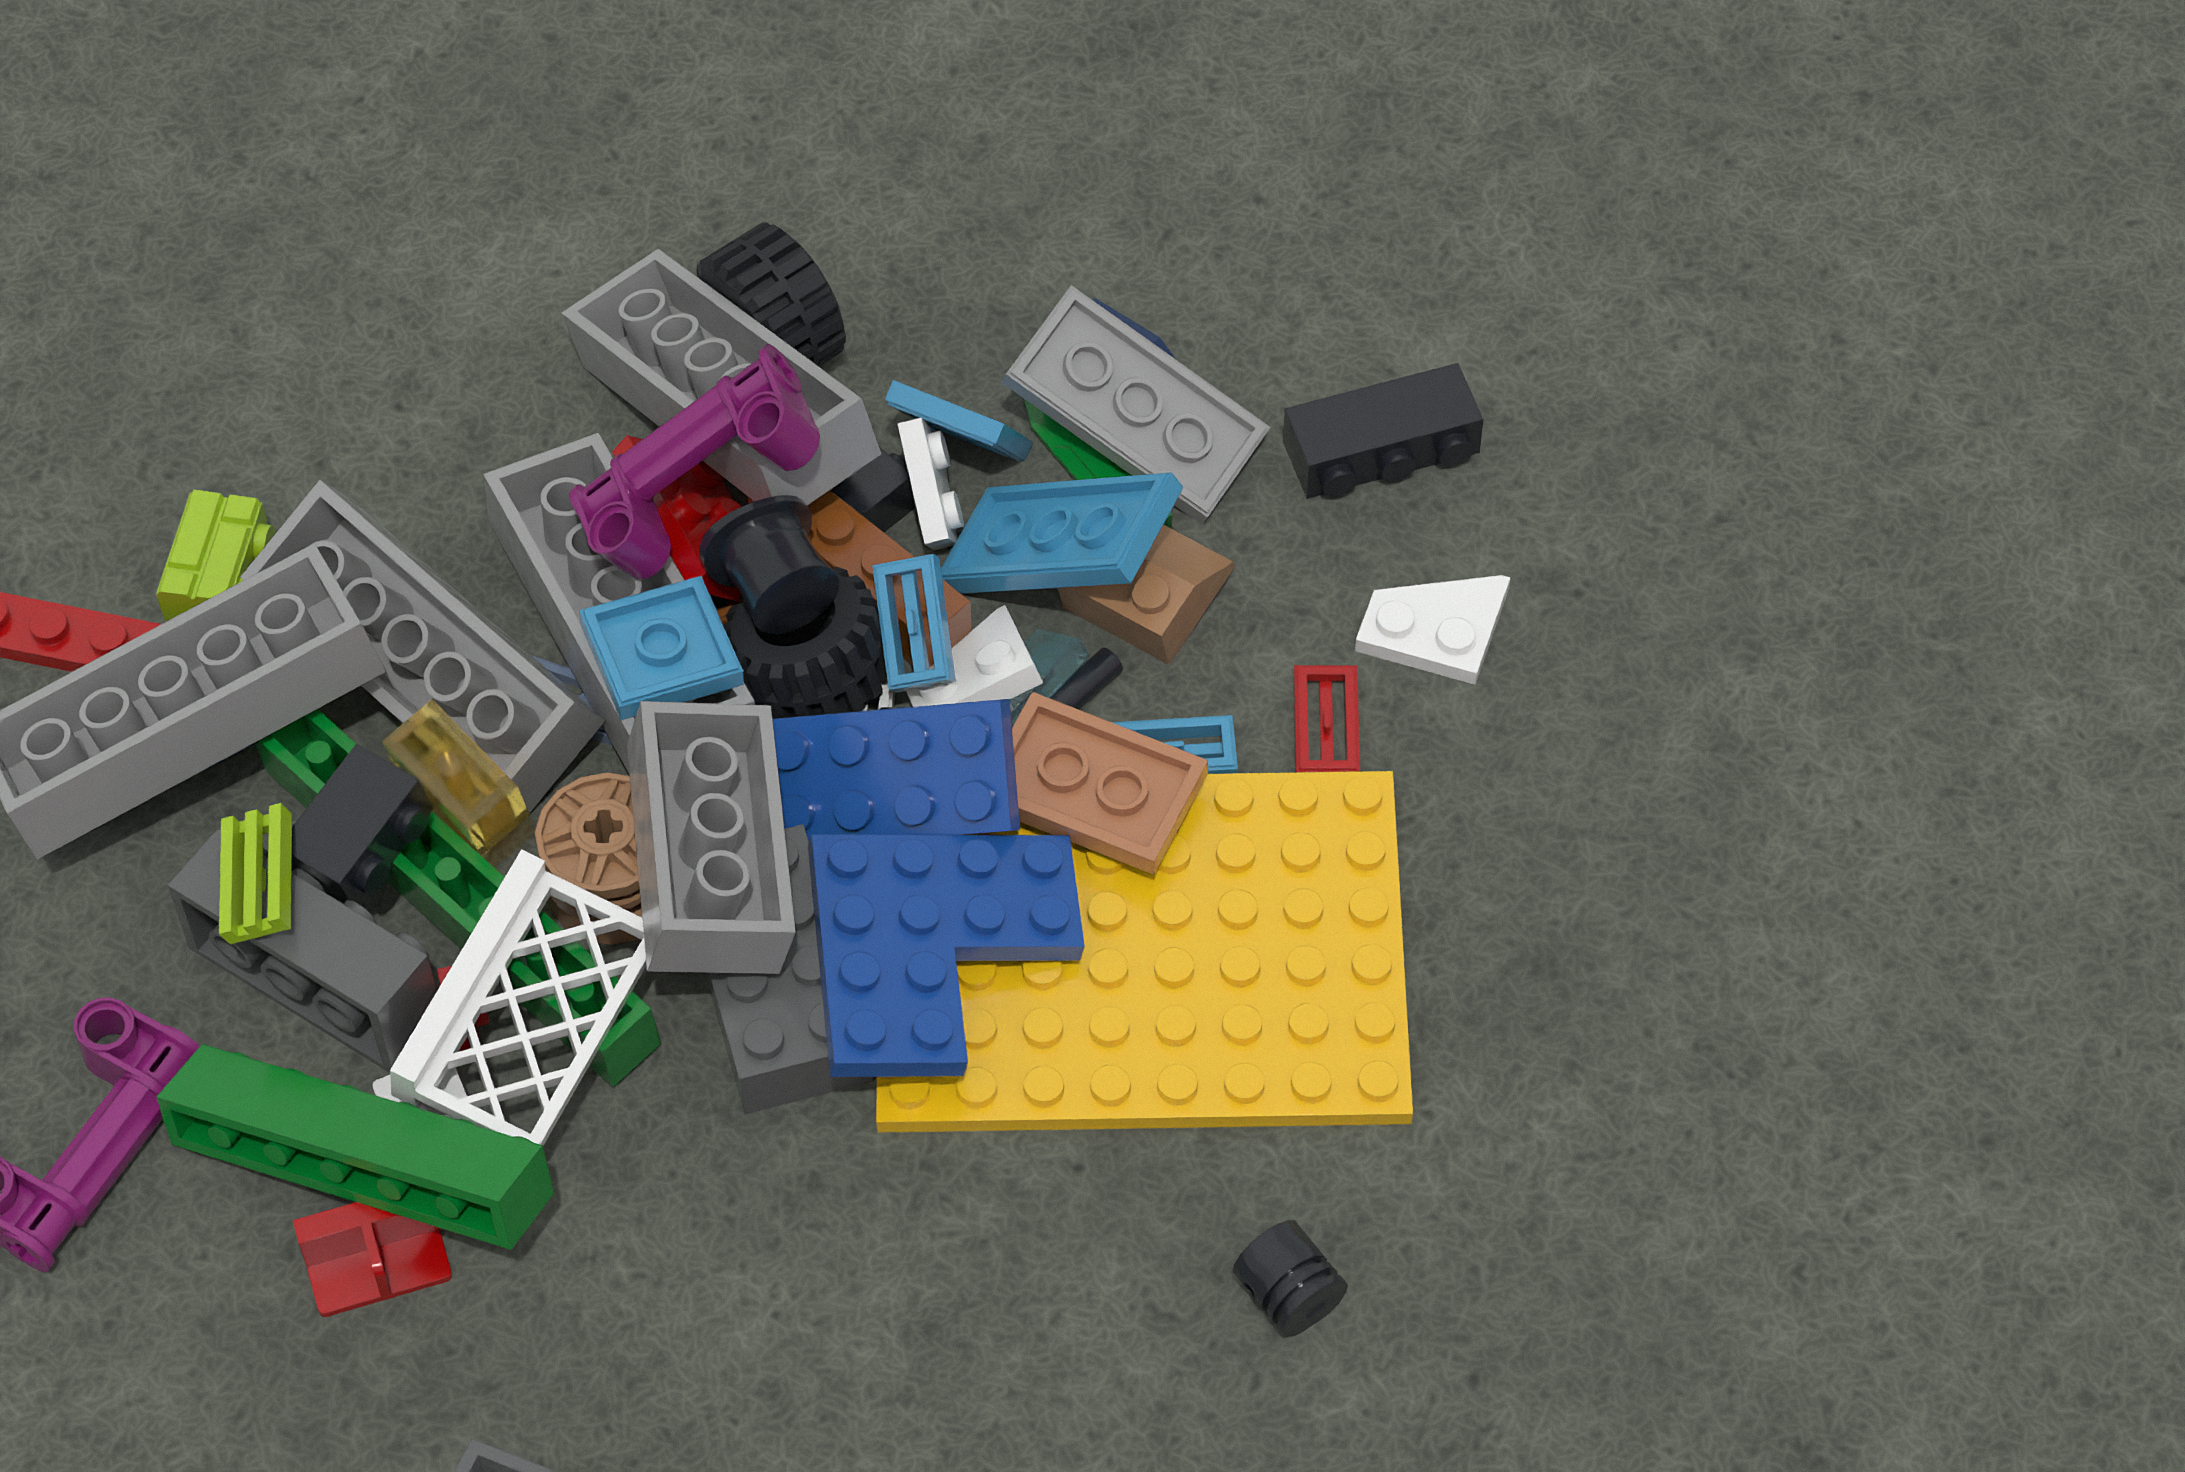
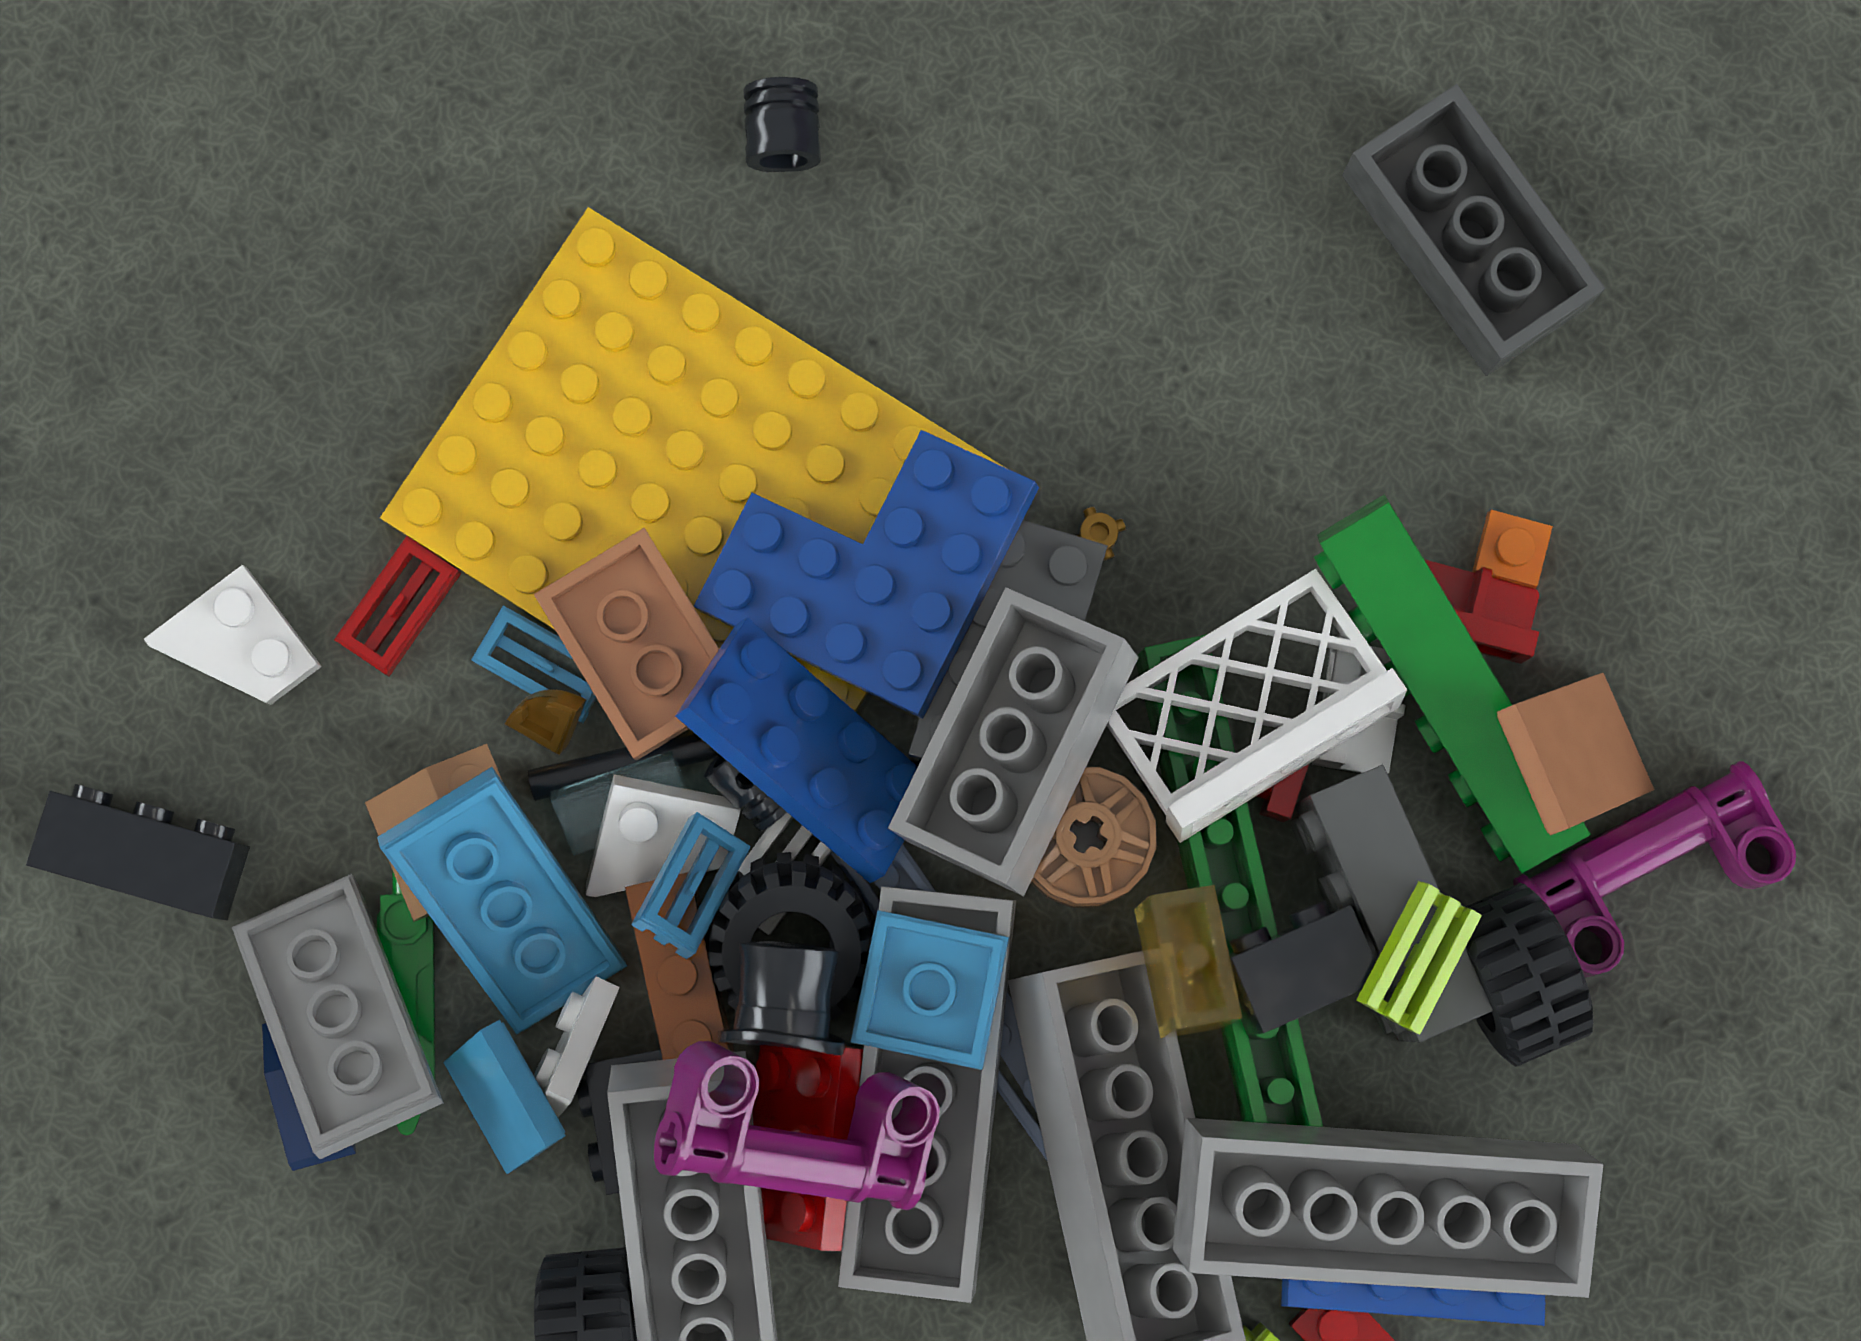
camera: 145 degrees left, 25 degrees up
(160, 951) = (1528, 977): none -> black tyre
(206, 1154) = (1575, 752): none -> nougat tile
(366, 1332) = (1513, 548): none -> orange plate
(761, 1125) = (1101, 529): none -> pearl gold piece
(1125, 706) = (548, 718): none -> pearl gold tile

